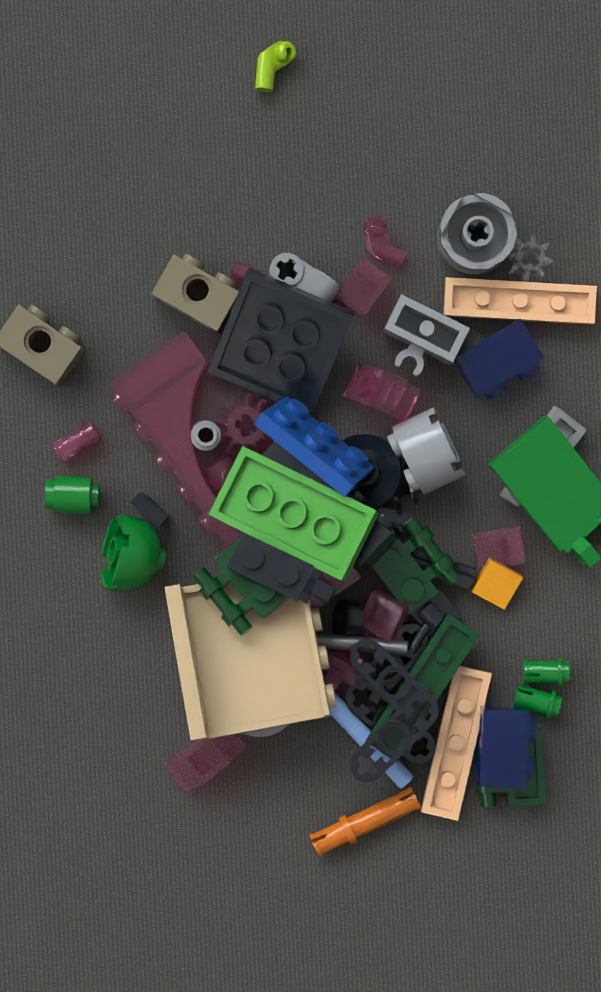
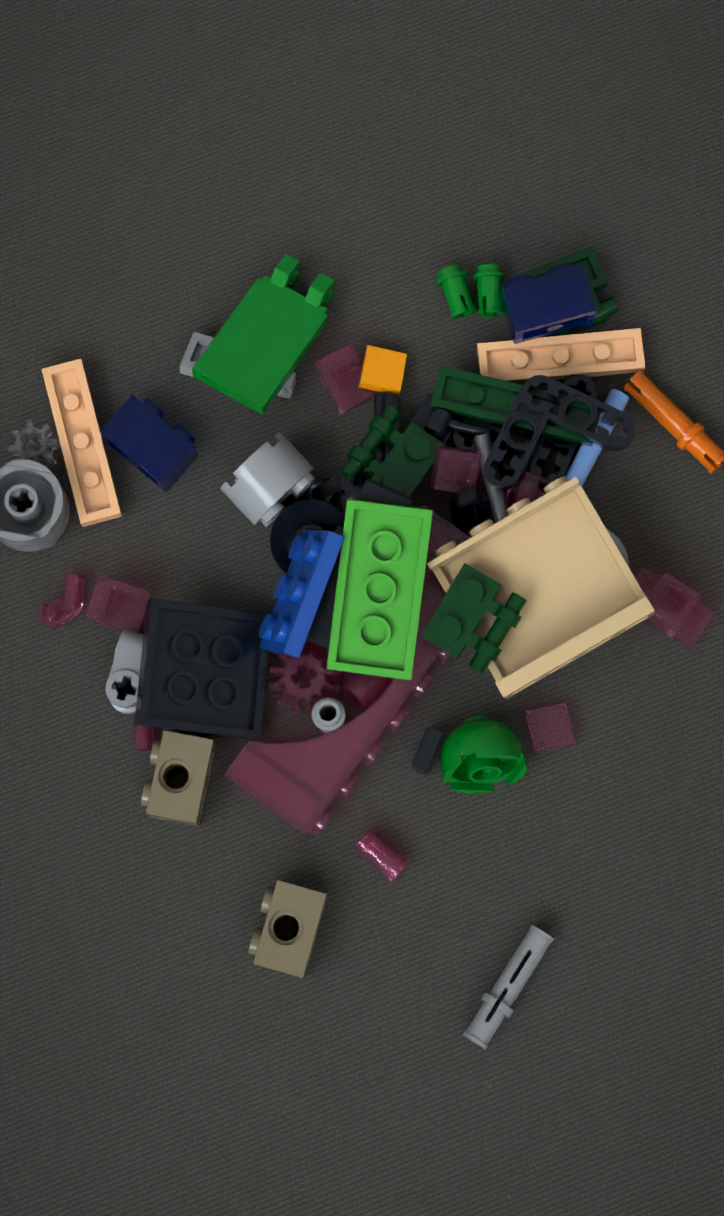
camera: 100 degrees left, 10 degrees down
(72, 495) = (440, 840): green brick -> none
(137, 620) = (550, 727): none -> clear pink tile
(279, 571) = (445, 580): black hinge -> none
(382, 392) = (222, 549): clear pink brick -> none
(425, 333) = (146, 524): light grey brick -> none

